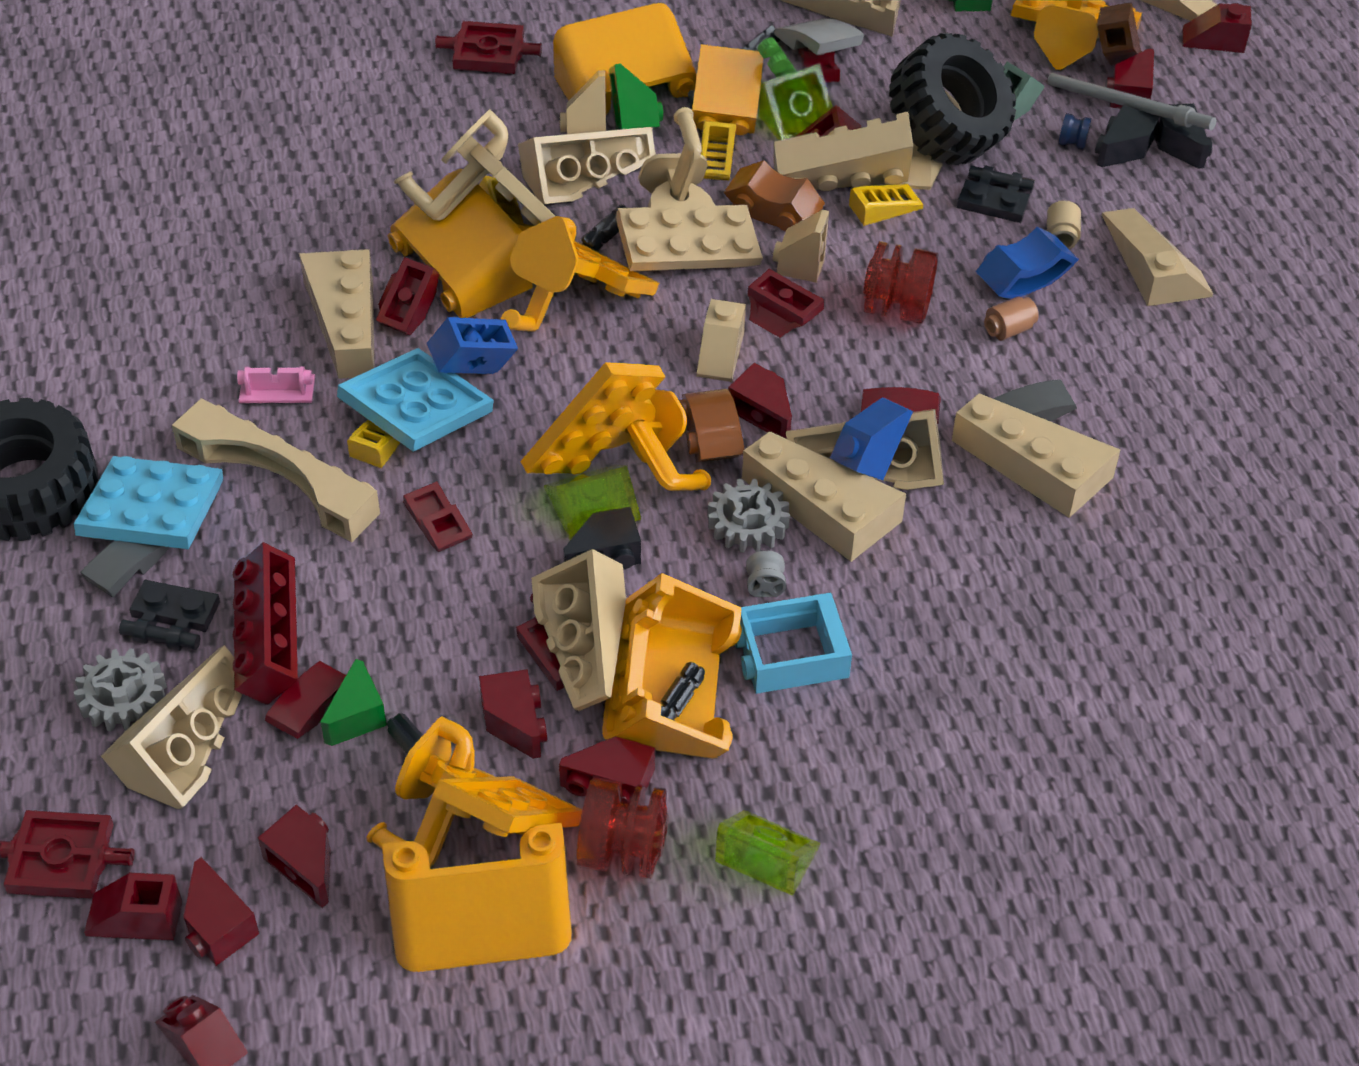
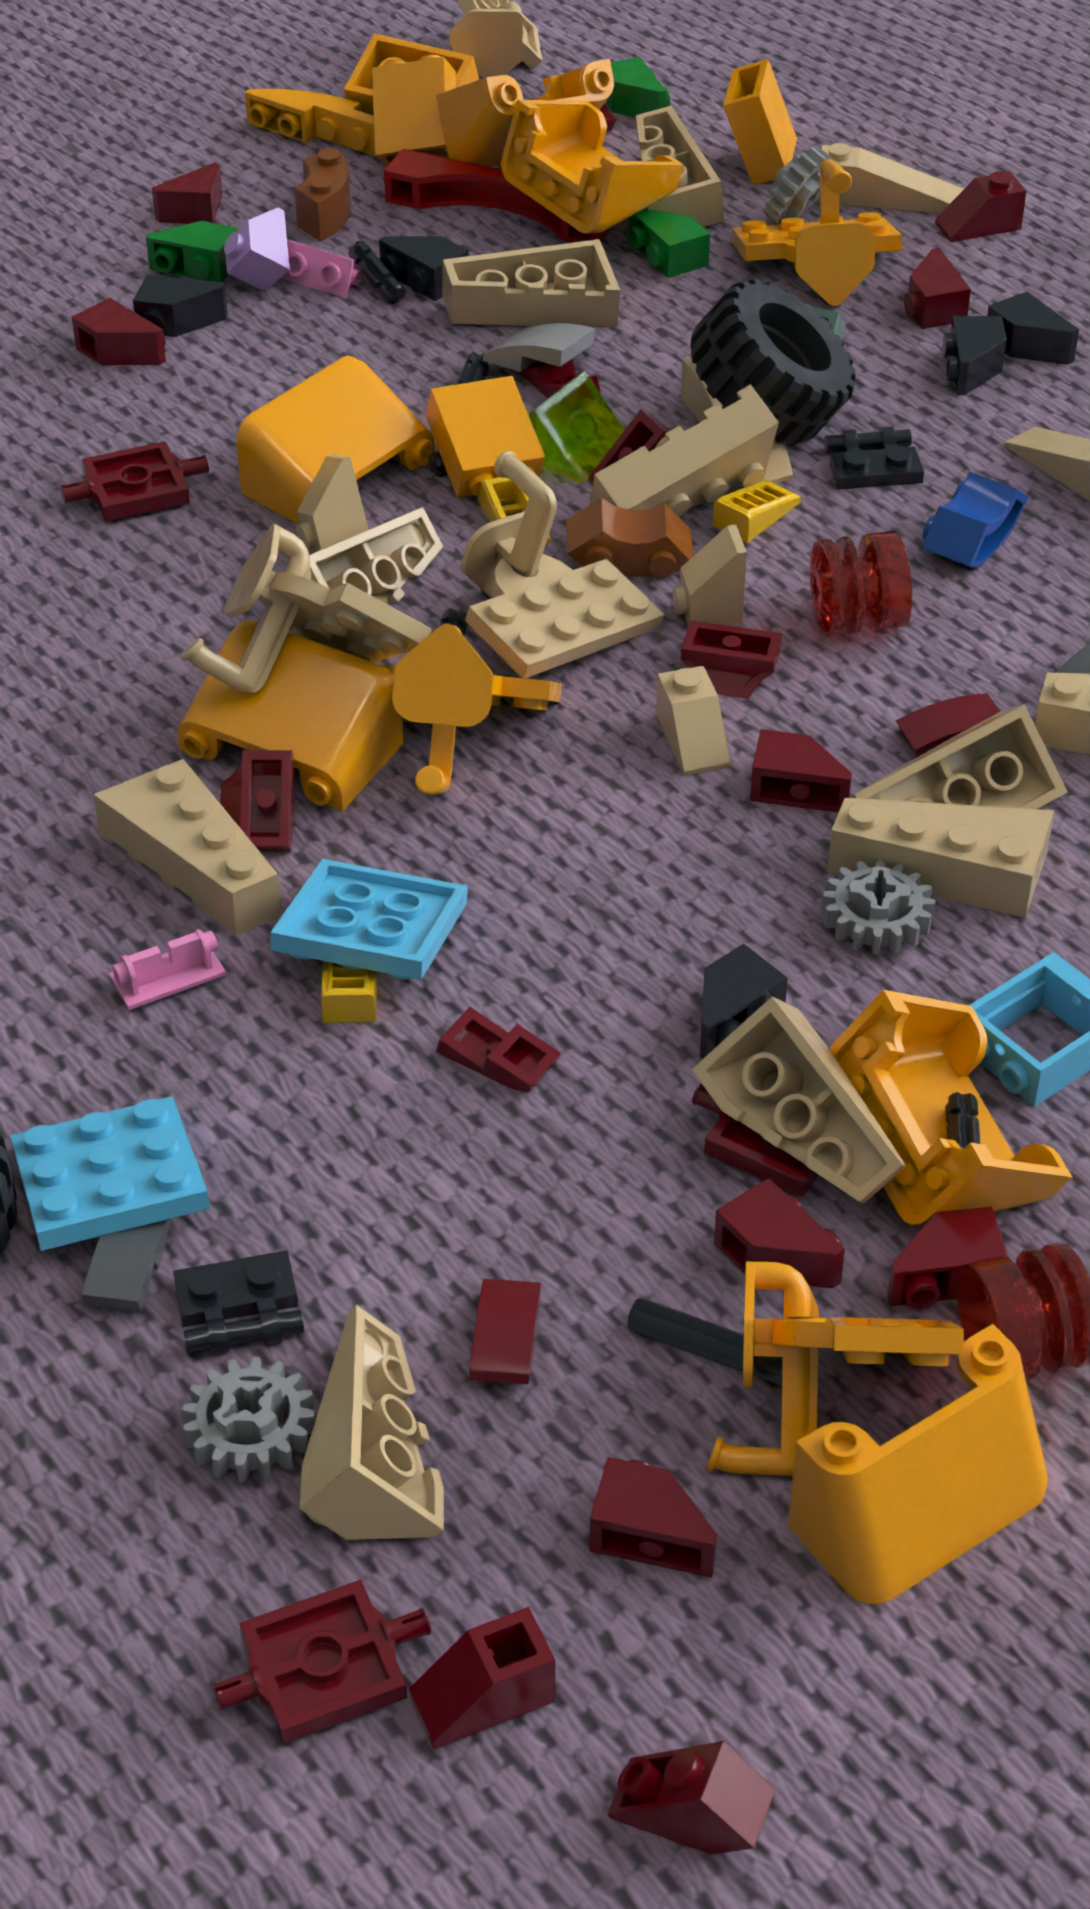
camera: 25 degrees left, 5 degrees down
(216, 916) = (595, 1640): dark red slope -> none
(218, 436) = (142, 1056): tan arch -> none
(265, 624) = (390, 1258): dark red brick -> none
(354, 708) = (581, 1311): green slope -> none
(472, 345) = (403, 828): blue brick -> none
(590, 493) = (671, 956): clear neon green slope -> none
(615, 409) = (682, 838): light orange plate -> none
(633, 101) = (384, 482): green slope -> none
(712, 425) = (762, 817): dark orange brick -> none
(766, 574) = (950, 964): light grey wheel -> none
(778, 63) = (535, 382): bright green hinge -> none
(872, 438) = (976, 758): blue slope -> none
(1011, 317) = (1001, 584): nougat brick -> none
(1065, 222) = (978, 457): tan brick -> none
(1074, 131) = (913, 363): dark blue wheel -> none
(1118, 32) = (896, 239): reddish brown slope -> none
(1181, 115) = (1033, 305): light grey bar -> none

